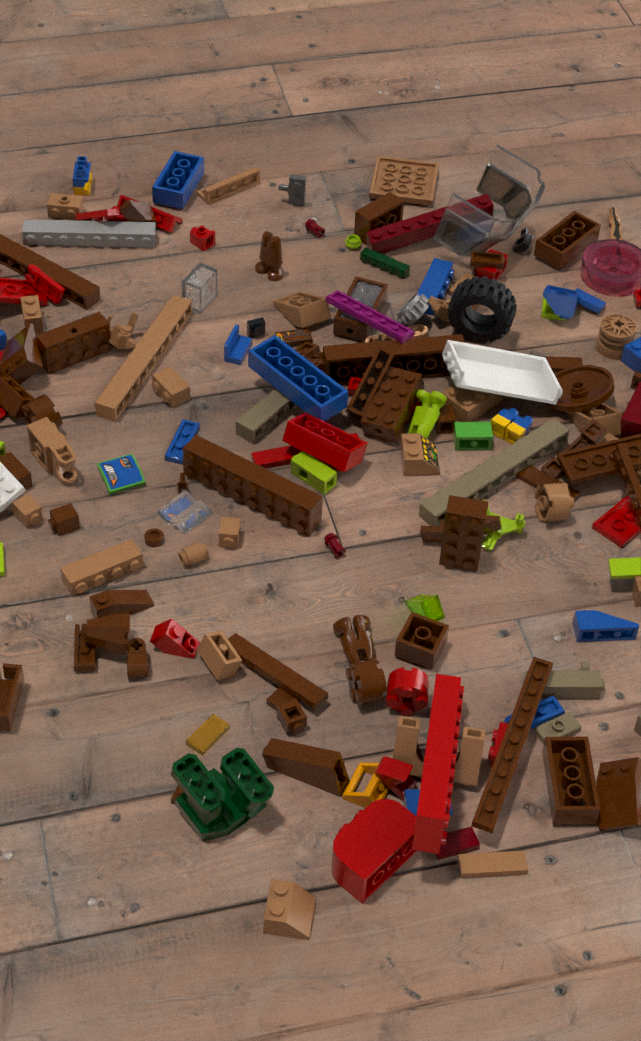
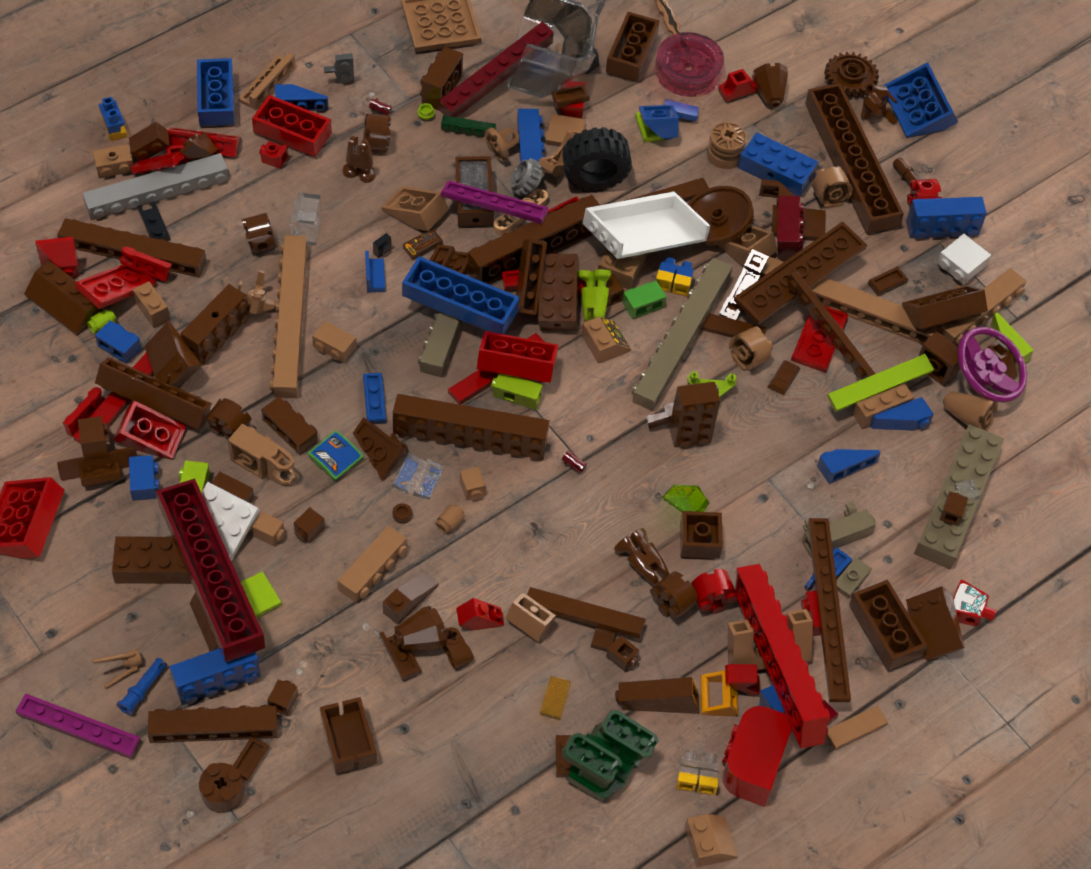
camera: 25 degrees left, 10 degrees up
(72, 259) = (154, 223): none -> black hinge
(94, 437) = (289, 425): none -> reddish brown brick
(101, 198) = (149, 141): none -> reddish brown brick
(153, 287) = (259, 233): none -> reddish brown brick
(162, 478) = (379, 447): none -> reddish brown wing
(228, 219) = (292, 125): none -> red brick
(246, 203) = (301, 97): none -> blue slope
(298, 242) = (377, 131): none -> reddish brown brick
(308, 848) = (706, 771): none -> hips
(402, 278) = (498, 143): none -> medium nougat tile
(577, 539) = (784, 377): none -> reddish brown tile

